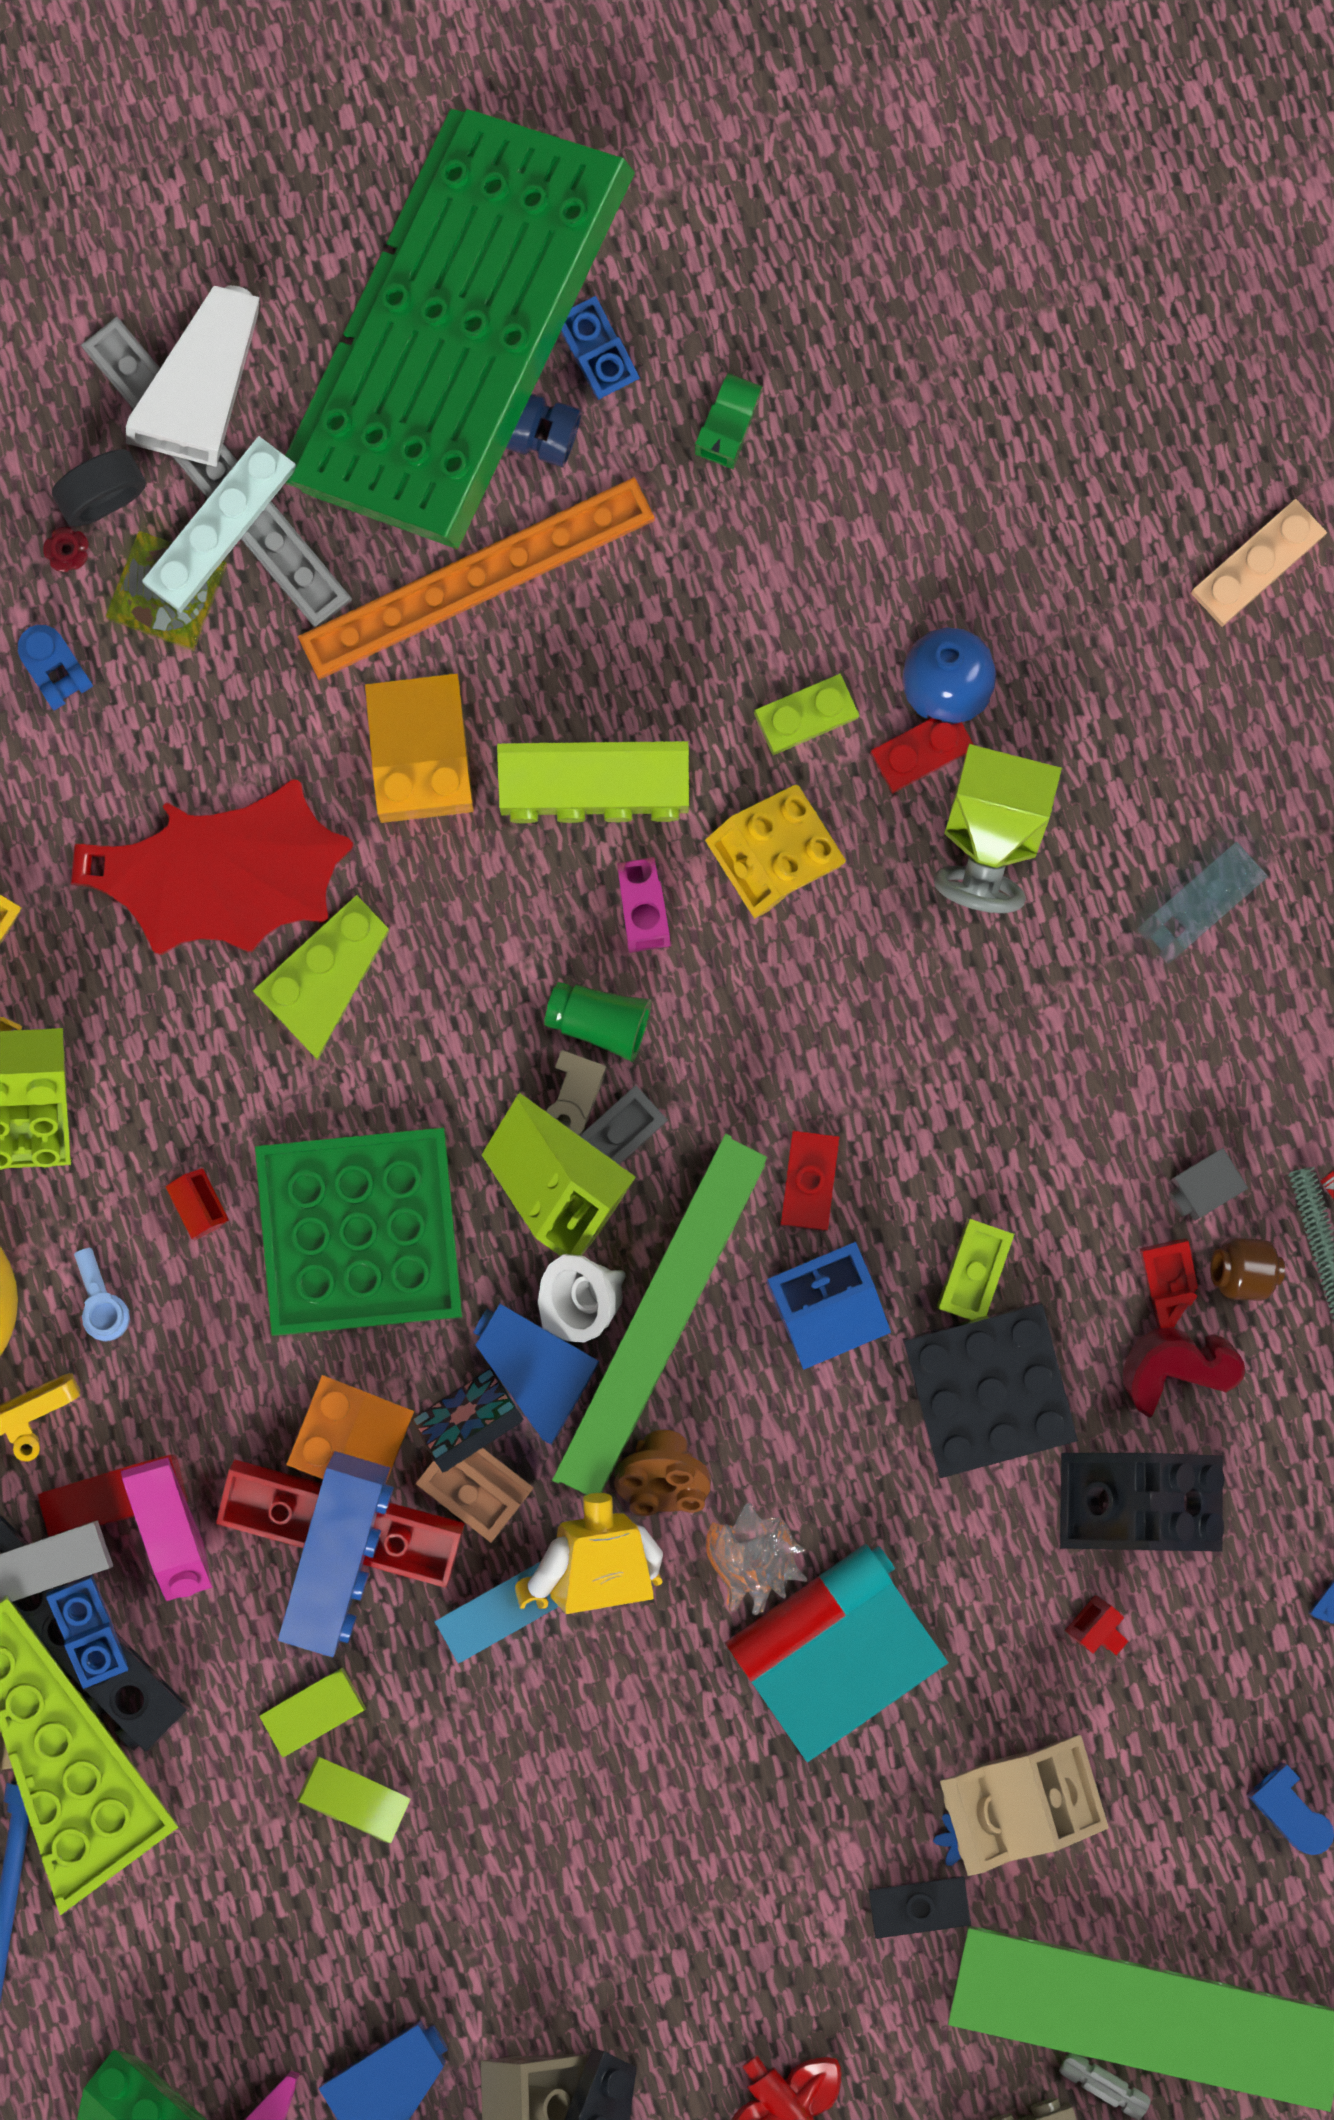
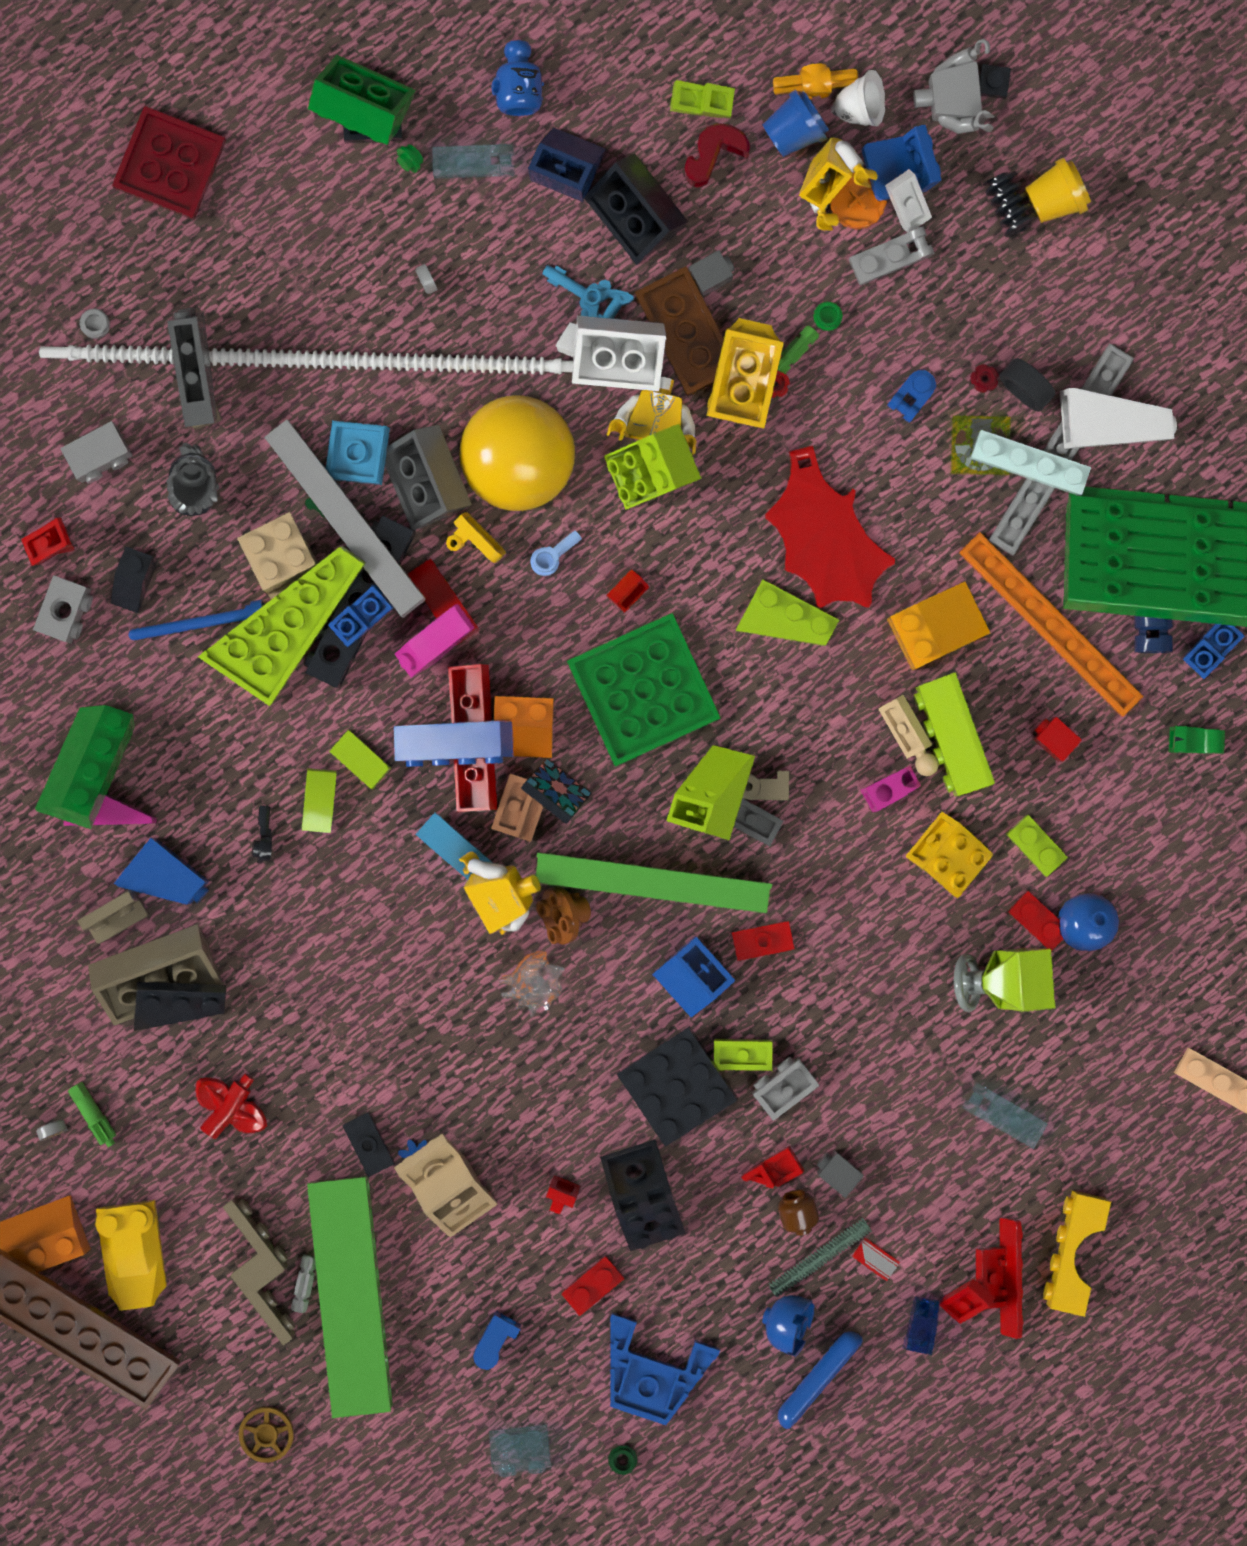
camera: 70 degrees right, 5 degrees up
(396, 1915) = (263, 846): none -> black plate
(535, 1368) = (600, 819): blue slope -> none
(569, 847) = (909, 734): none -> tan plate
(578, 1298) = (648, 831): white piece -> none
(599, 1018) = (815, 786): green plant -> none
(652, 628) = (1056, 738): none -> red brick
(836, 1651) = (497, 1048): teal door -> none
(1048, 1224) = (784, 1088): none -> light grey bracket
(1176, 1355) = (733, 1186): dark red animal -> none
(1256, 1628) = (592, 1285): none -> red plate

